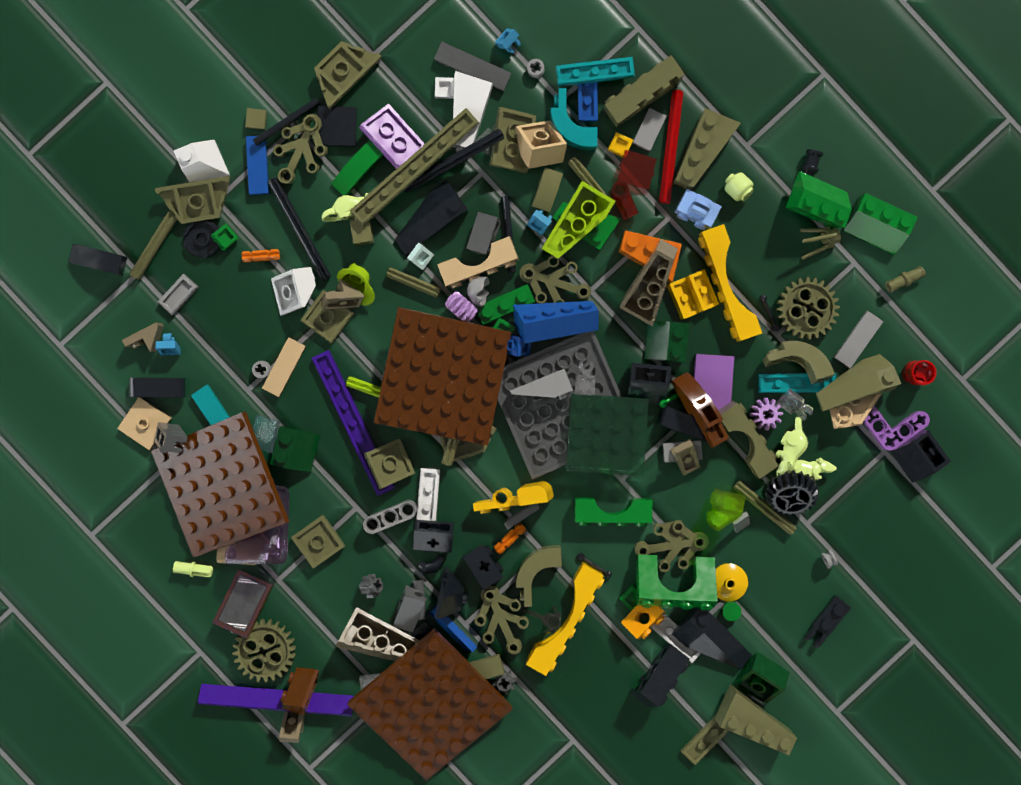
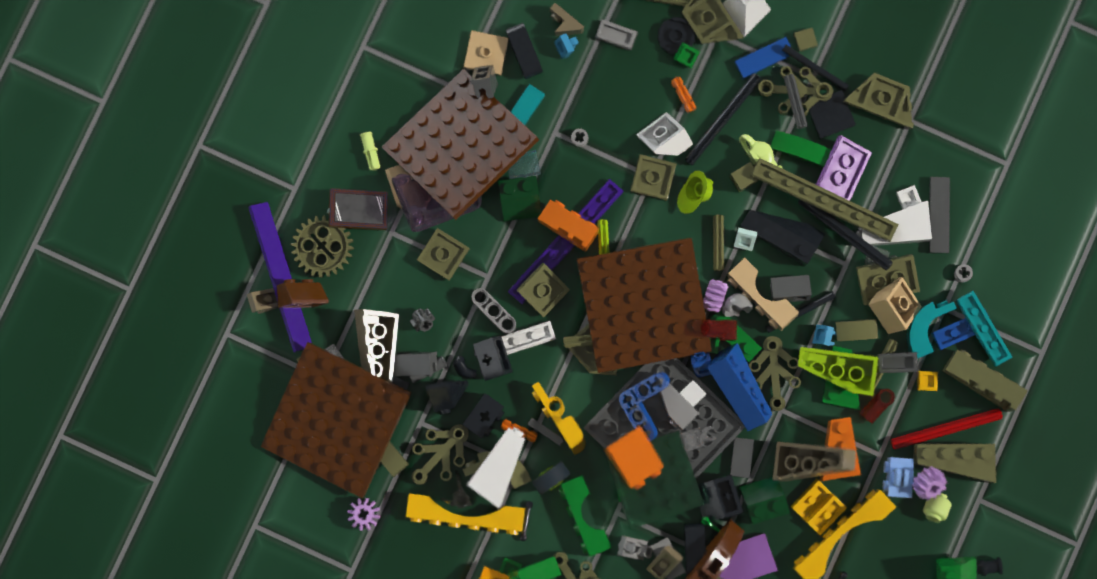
camera: 75 degrees right, 5 degrees down
(284, 367) = (590, 157): tan tile -> none
(309, 153) = (795, 101): none -> dark grey axle
(338, 415) = (568, 225): none -> orange wedge
(344, 297) = (677, 184): dark tan slope -> none
(454, 631) = (412, 412): blue tile -> none
(495, 314) = (720, 329): none -> clear red piece
(506, 39) = (977, 235): dark azure tile -> none
(508, 678) = (382, 486): dark grey gear -> none
(526, 418) = (638, 397): none -> blue beam
(534, 713) = (358, 510): none -> lavender gear
(539, 576) = (497, 469): none -> white slope
(543, 366) = (693, 393): none -> white tile
(565, 528) = (551, 477): none -> black wheel
(581, 447) = (634, 458): none -> orange slope
(593, 164) = (898, 362): none -> dark grey tile
(619, 345) = (741, 457): none -> dark grey tile
(636, 169) = (911, 405): clear red piece -> none
(649, 129) = (953, 402): light grey tile -> none
(661, 478) = (634, 548): none -> light grey hips
(716, 184) = (929, 483): none -> lavender gear

